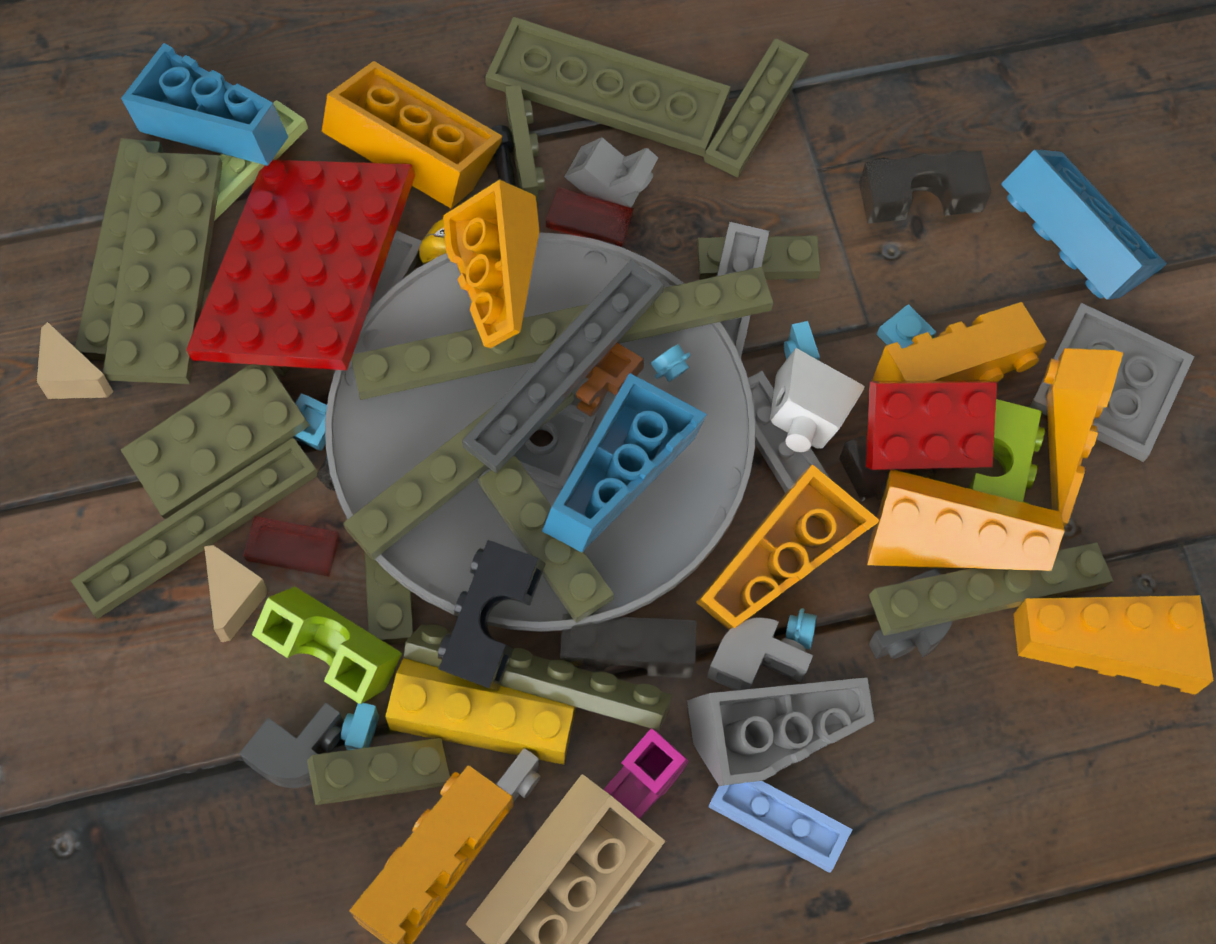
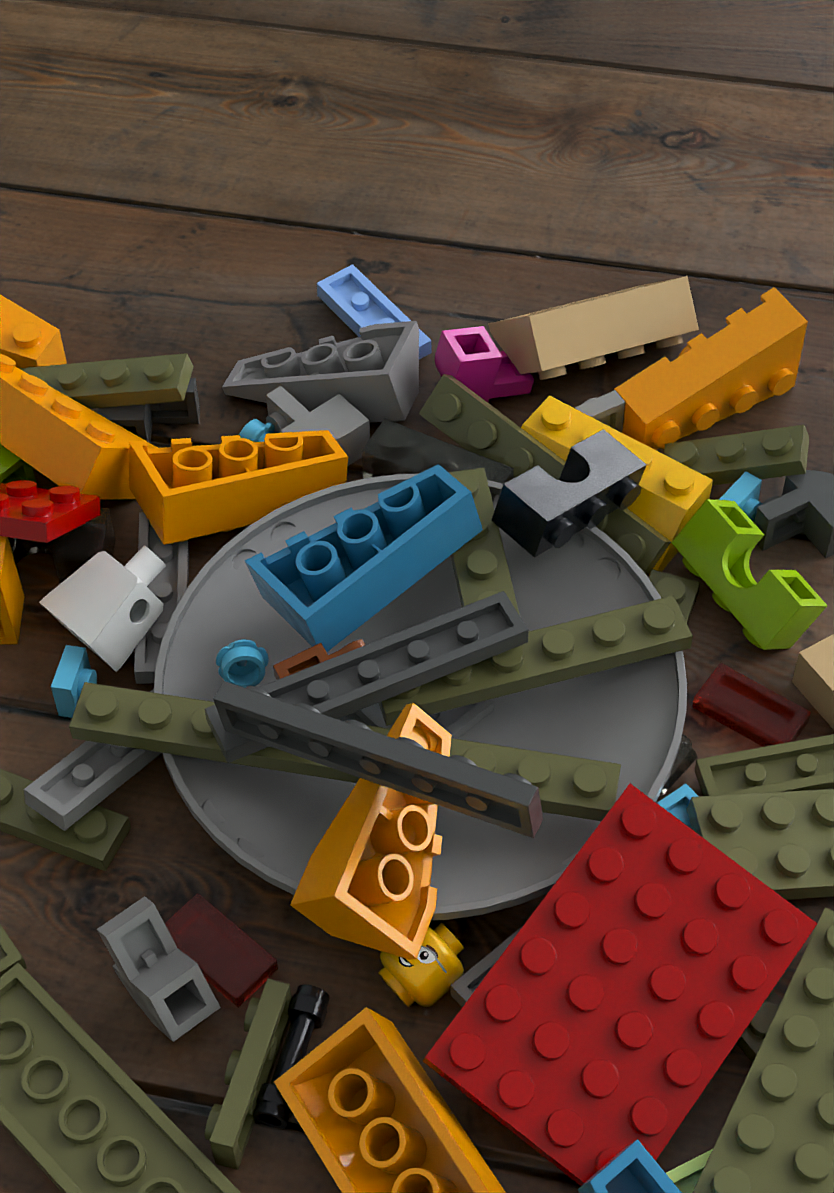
camera: 150 degrees left, 15 degrees down
(512, 258) = (387, 761): none -> dark grey plate

